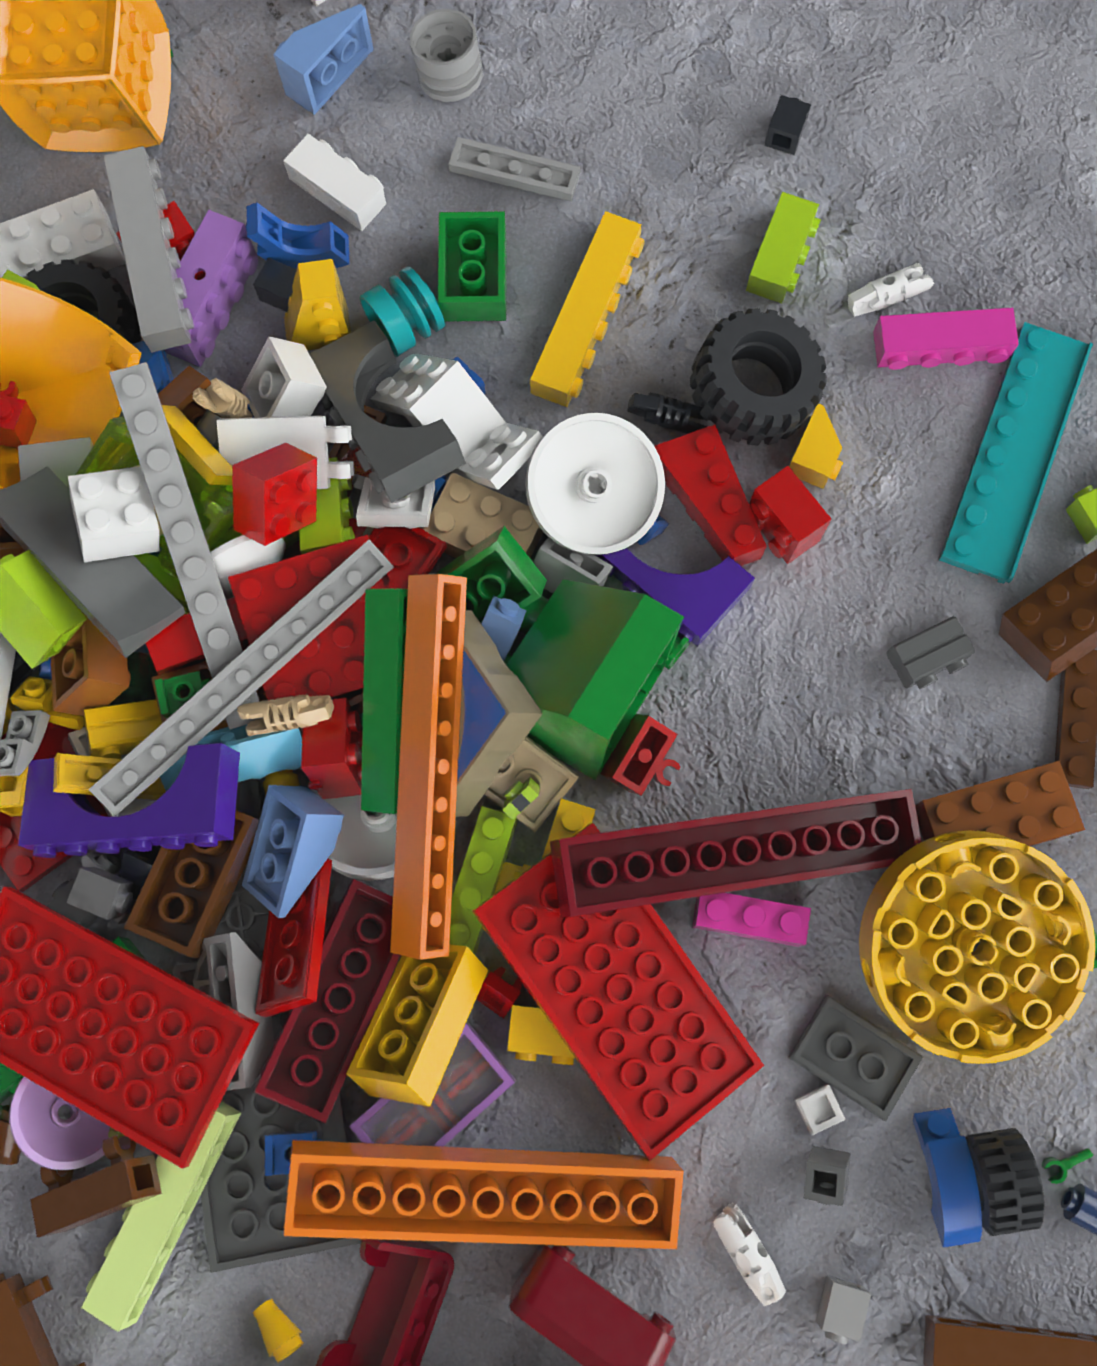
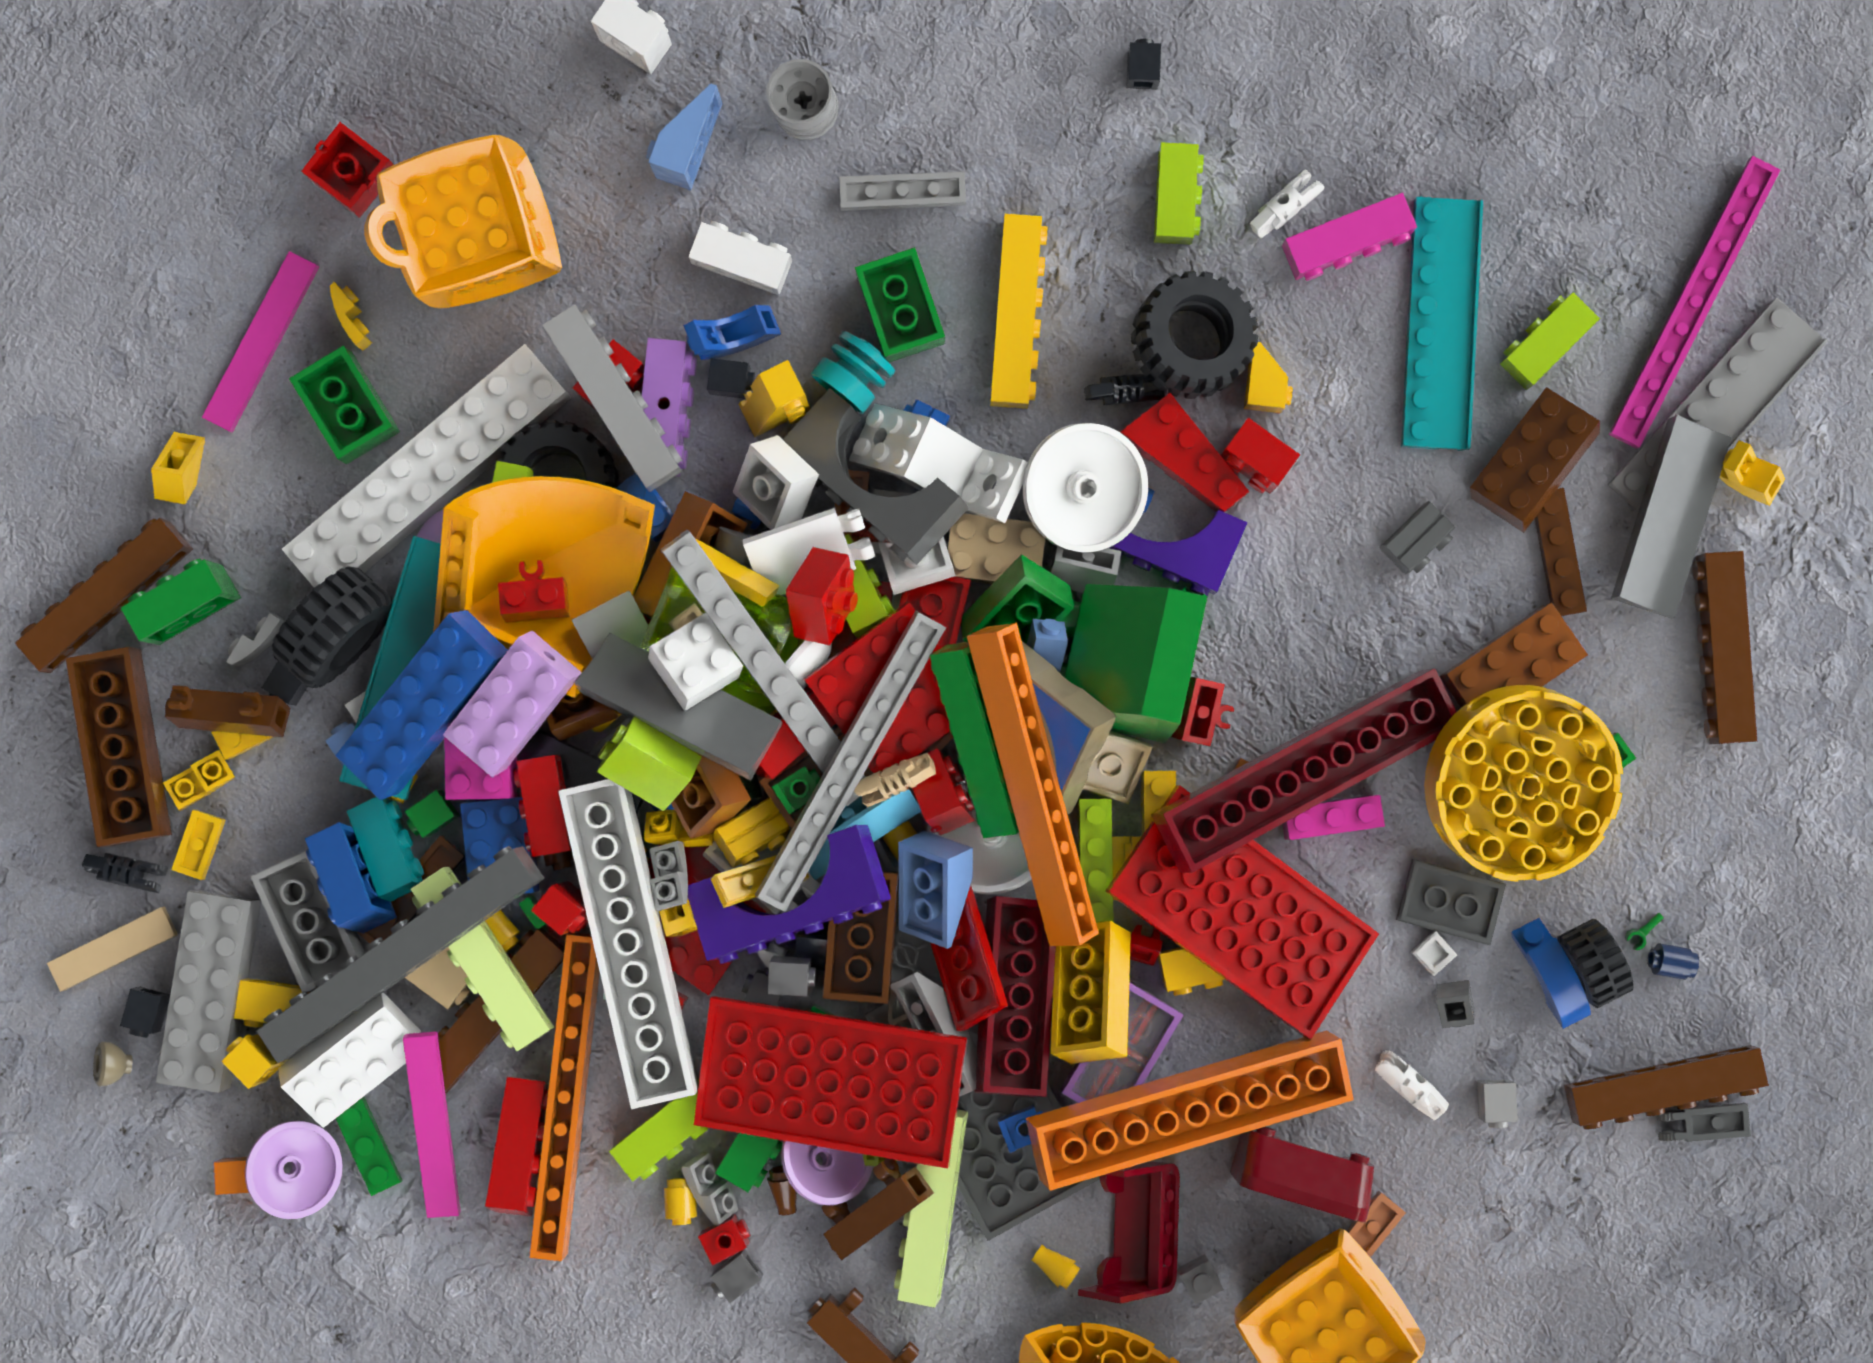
camera: 15 degrees left, 10 degrees up
(223, 400) = (735, 519): tan hinge -> none
(520, 796) = (1110, 781): lime plate -> none

